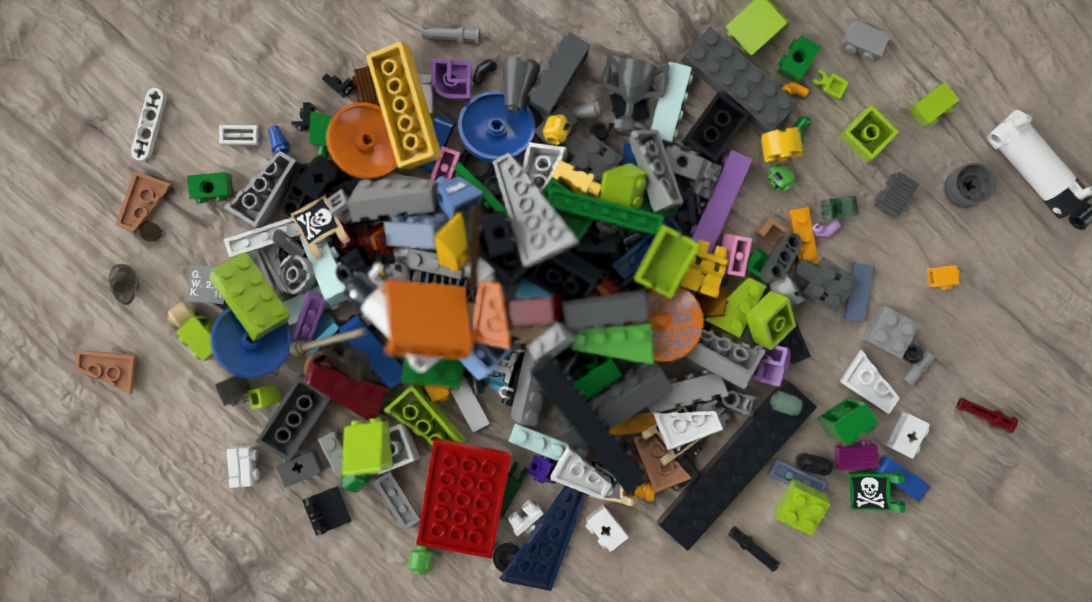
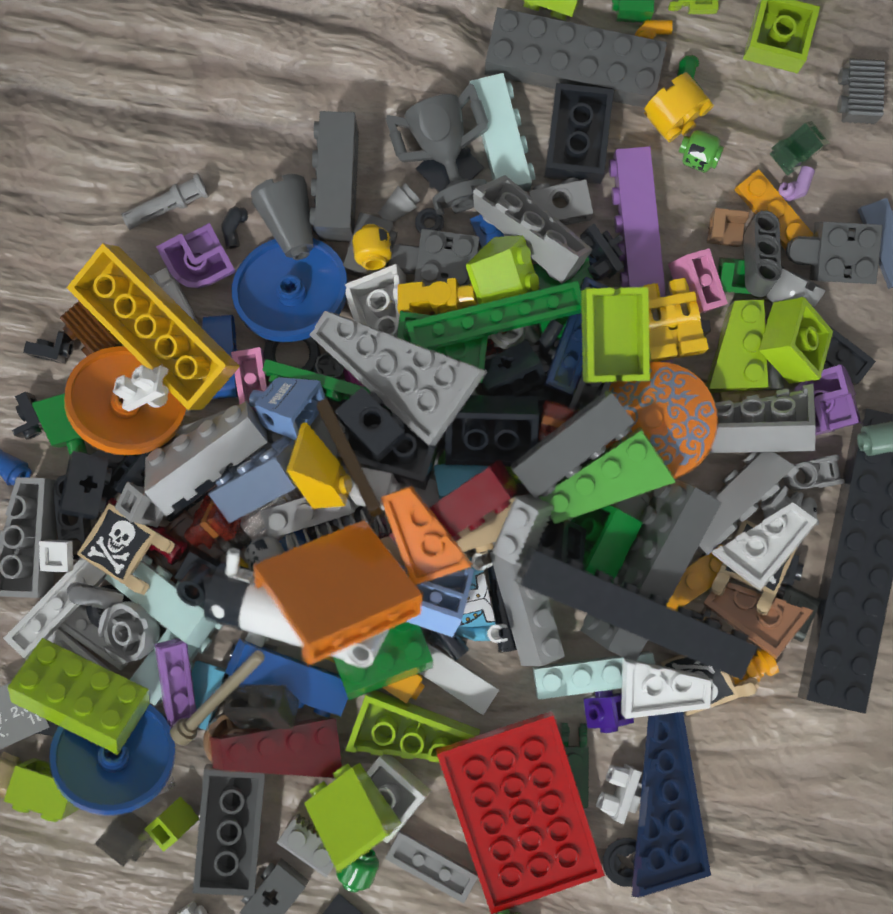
camera: 25 degrees left, 5 degrees down
(278, 208) = (56, 555): none -> white plate
(378, 140) = (143, 388): none -> white hips
(603, 517) = (754, 748): white brick -> none
(706, 179) = (605, 204): dark grey hips -> none
(713, 306) = (709, 365): clear orange piece -> none

